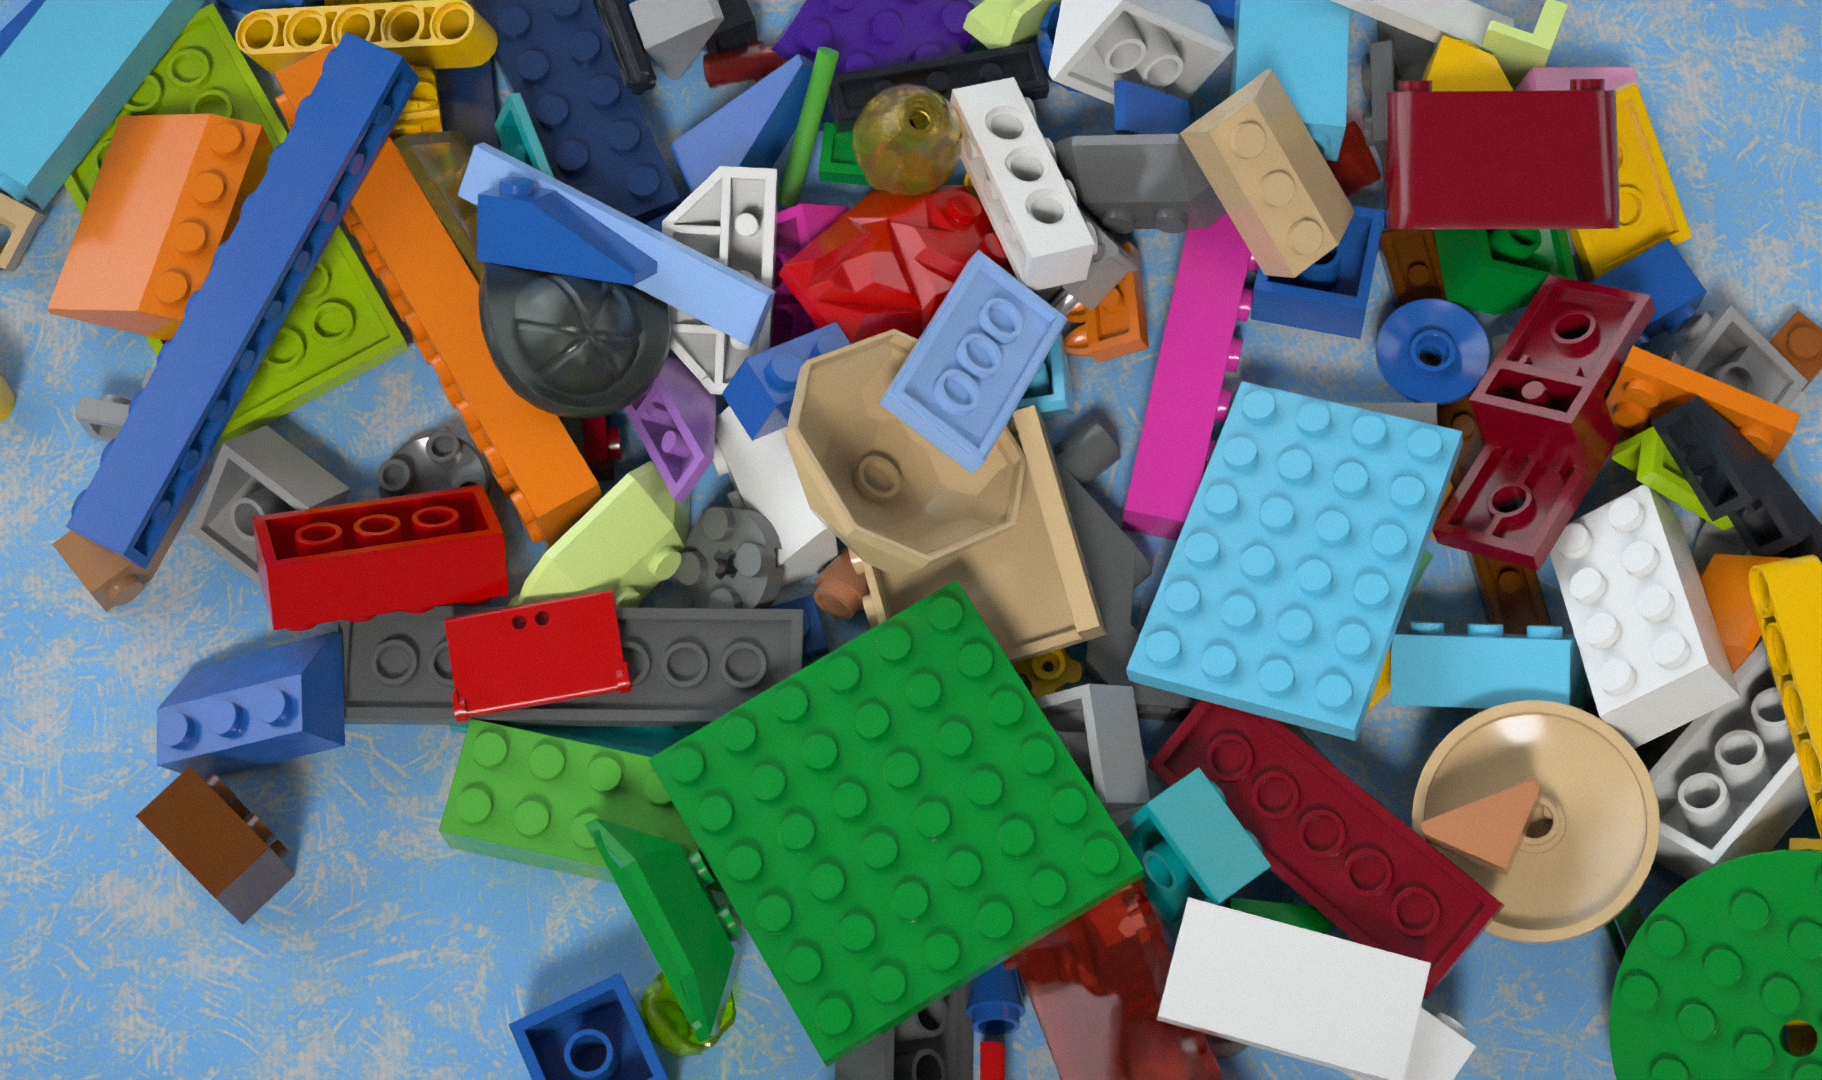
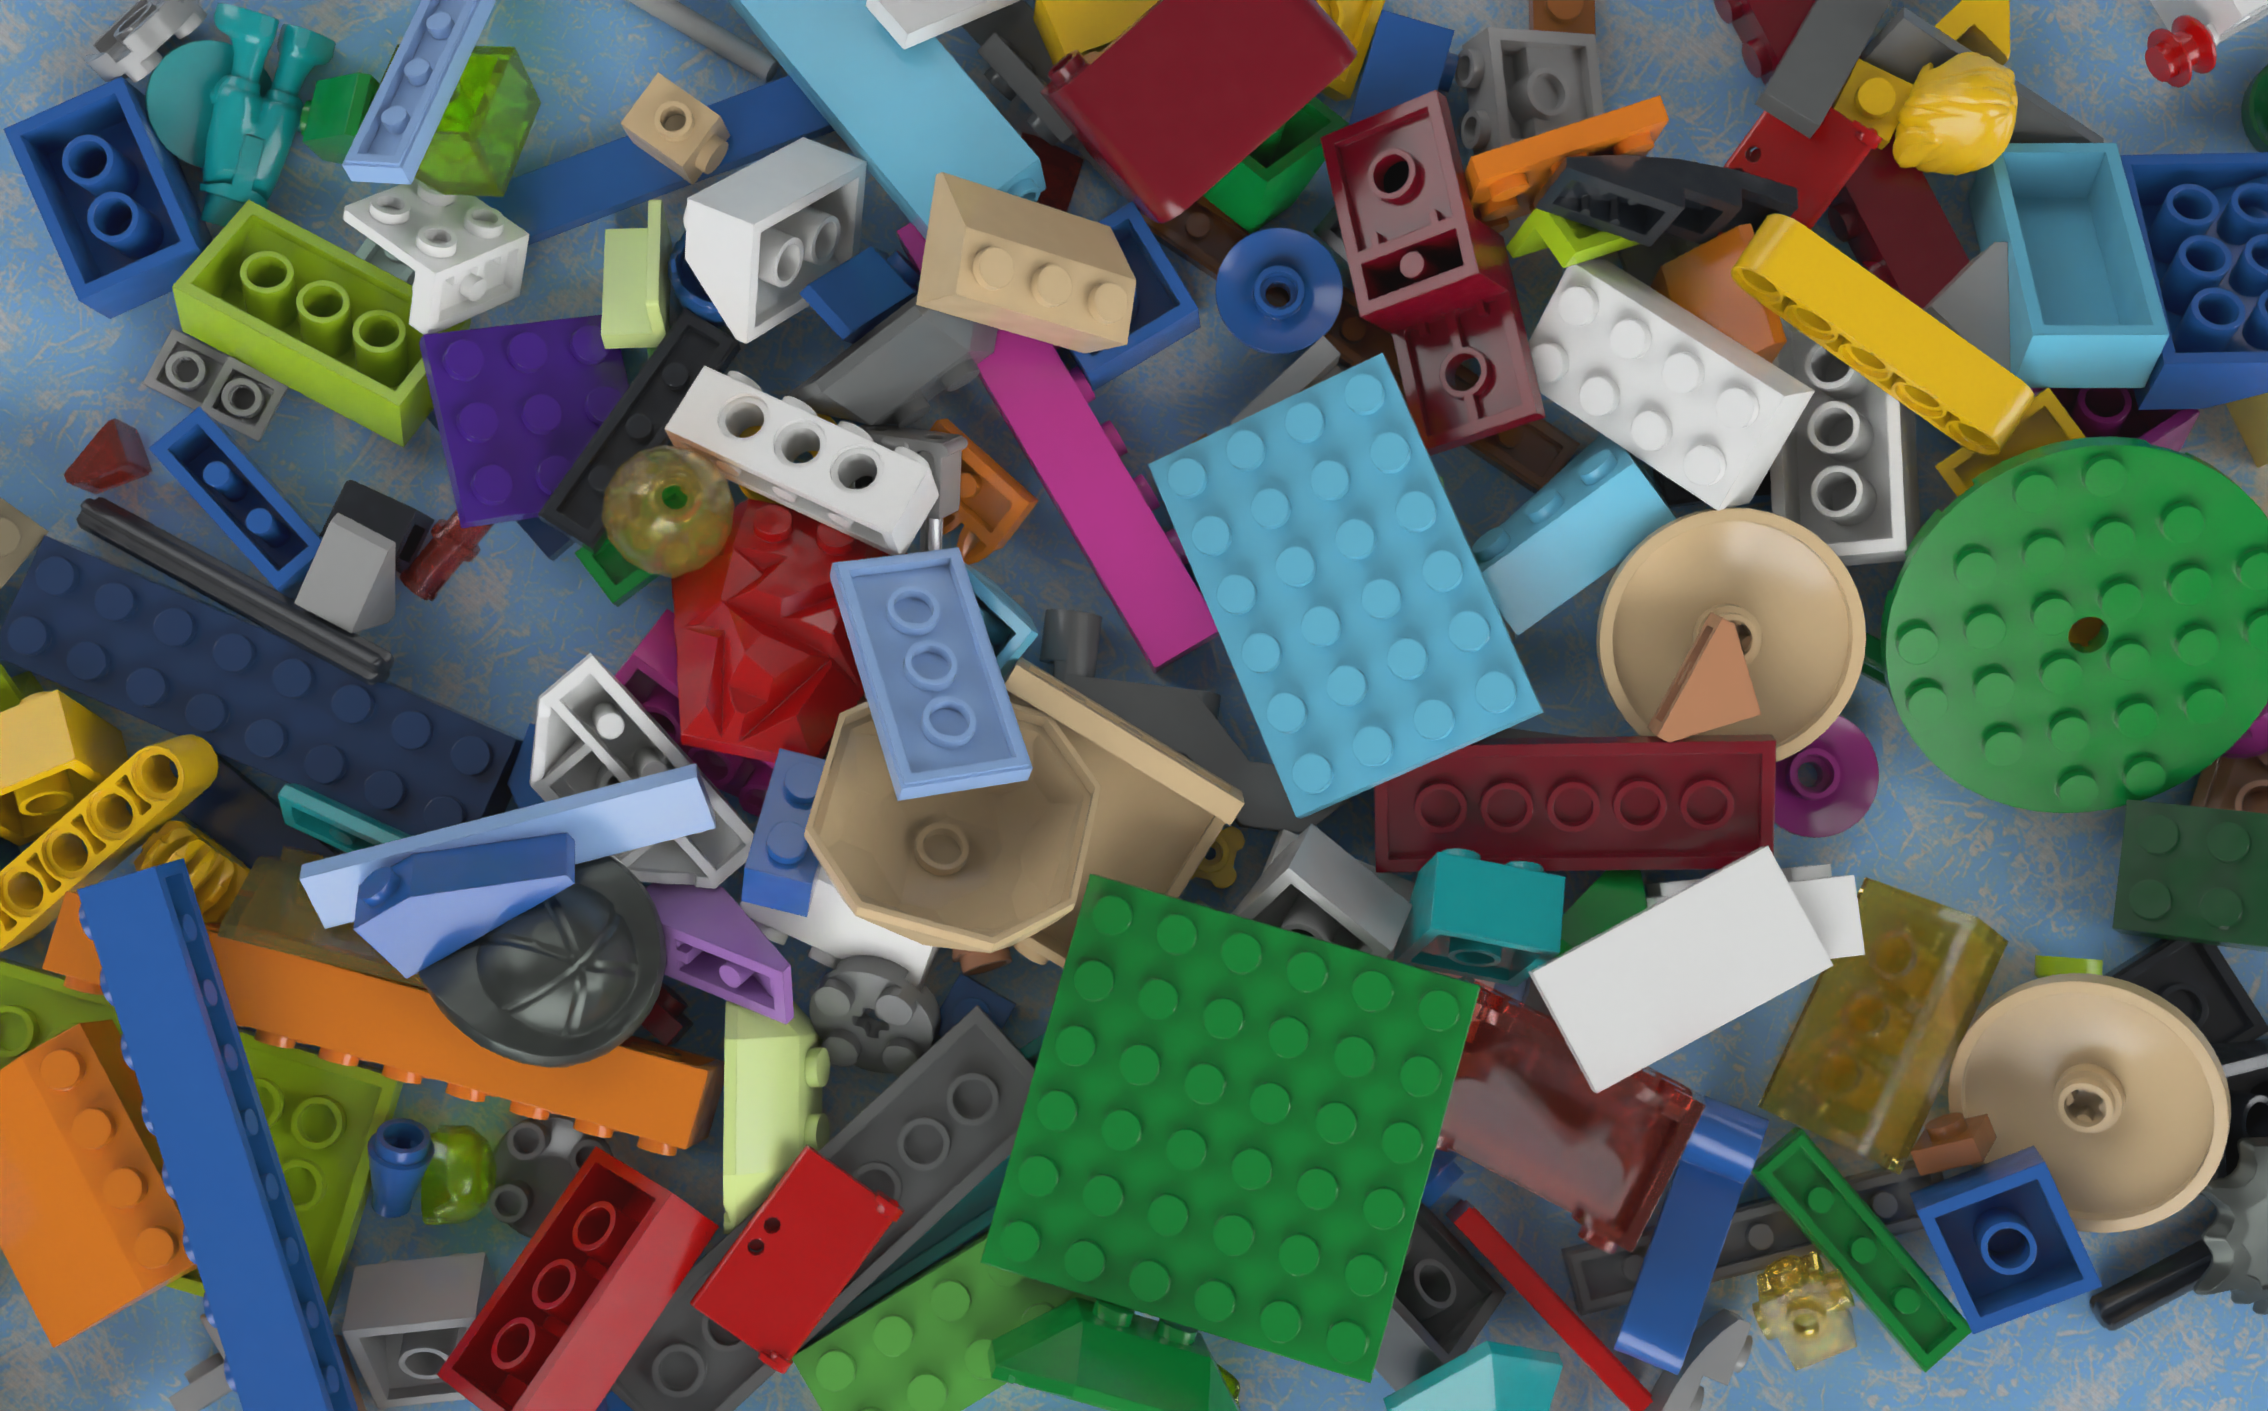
camera: 50 degrees left, 15 degrees up
(353, 389) = (397, 1164): none -> blue cone
(382, 430) = (458, 1176): none -> clear neon green hair
(747, 129) = (517, 625): slope -> none
(807, 126) = (562, 569): bright green bar -> none
(1548, 986) = (1843, 787): none -> magenta dish

